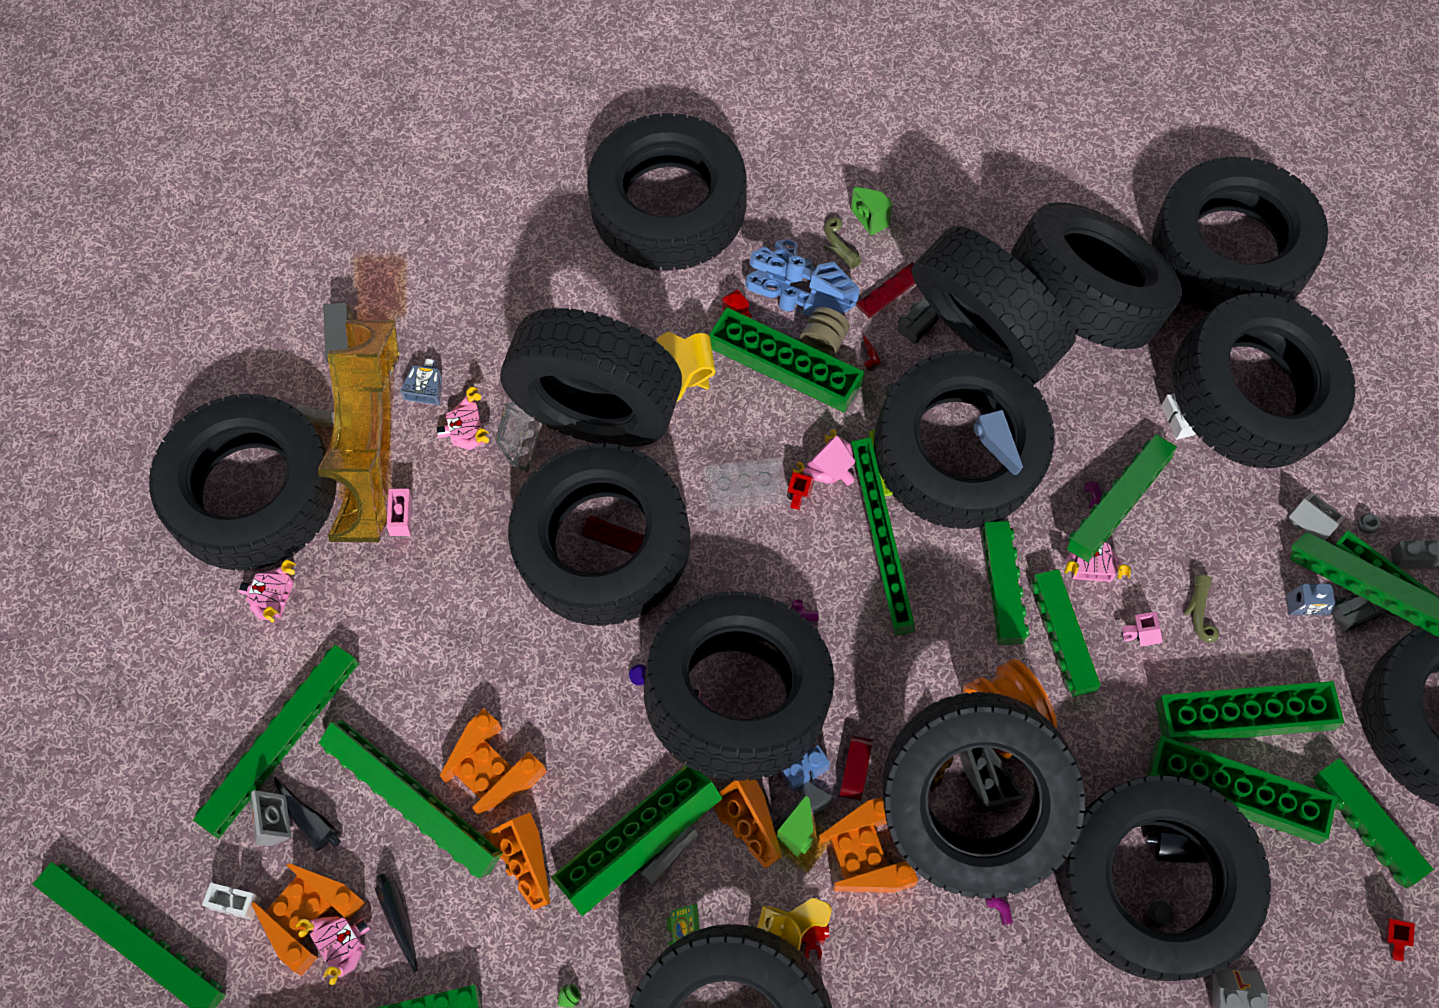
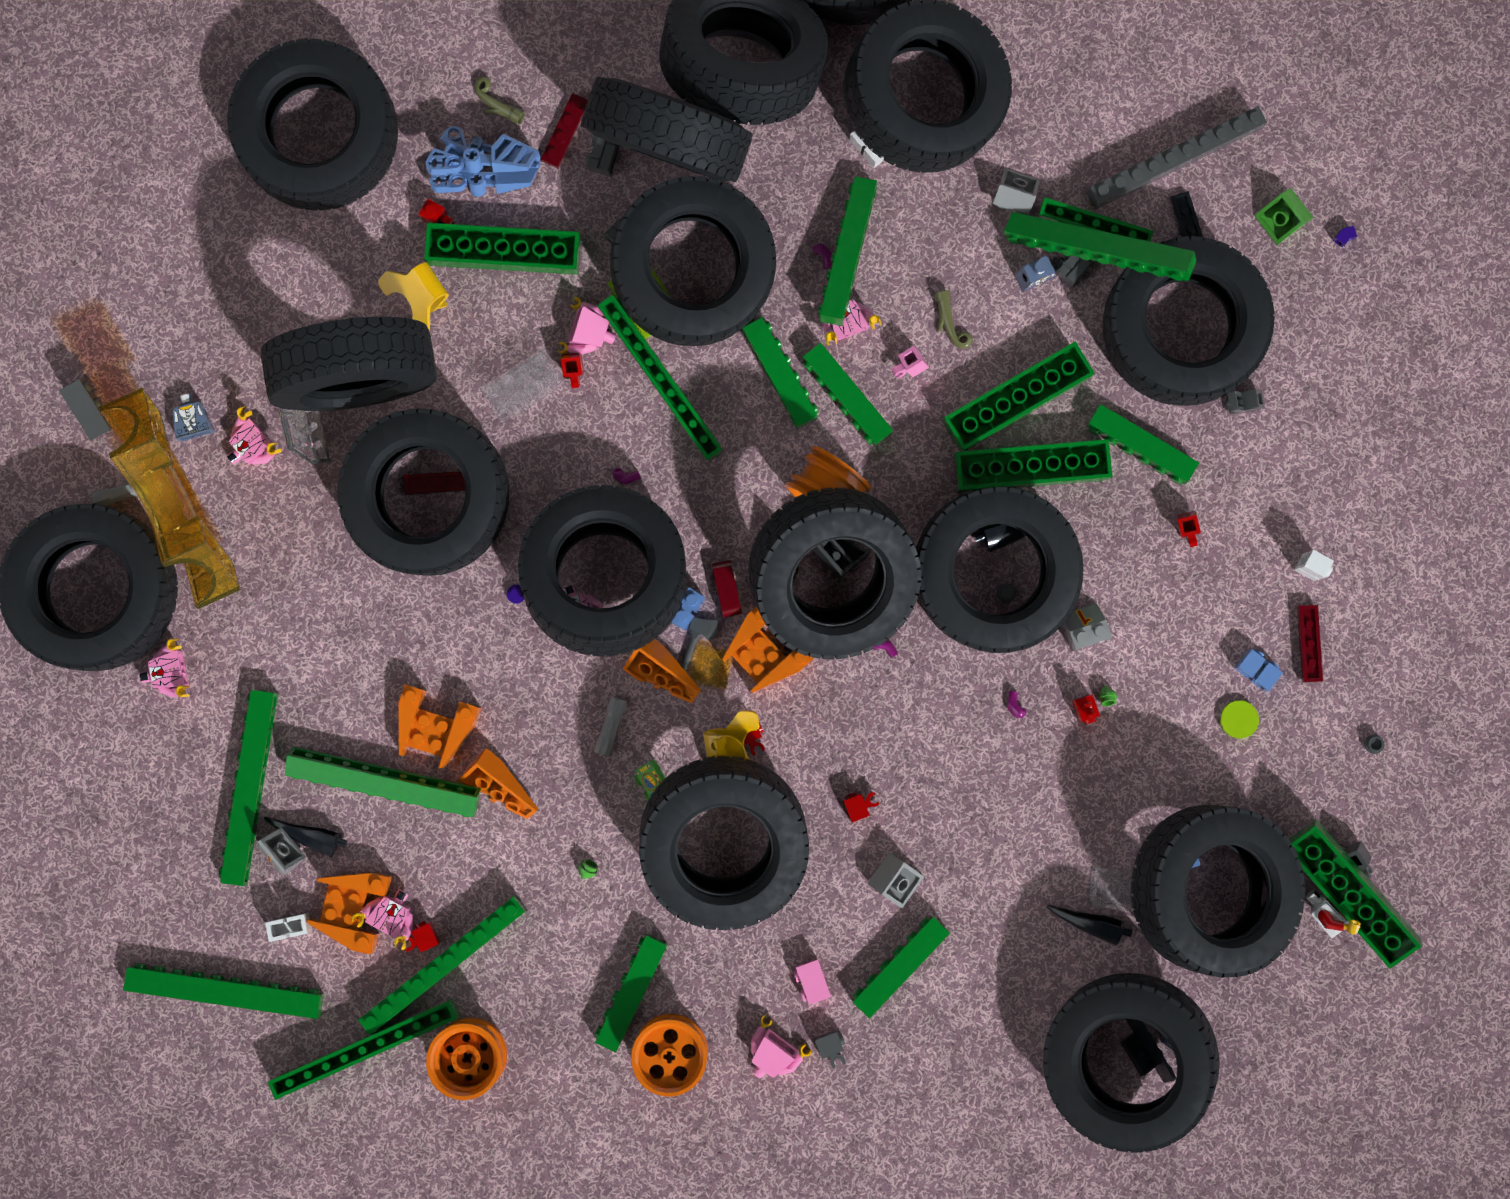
camera: 30 degrees left, 20 degrees up
(360, 984) = (424, 937): none -> red brick
(396, 916) = (424, 875): black piece -> none
(399, 512) = (238, 549): bright pink brick -> none
(636, 838) = (580, 729): green brick -> none
(797, 829) = (703, 662): bright green slope -> none
(825, 330) = (526, 206): dark tan wheel -> none
(871, 209) = (511, 56): bright green slope -> none
(875, 360) = (576, 204): red bar -> none
(996, 436) = (722, 256): sand blue slope -> none
(1369, 523) = (1061, 177): dark grey plate -> none

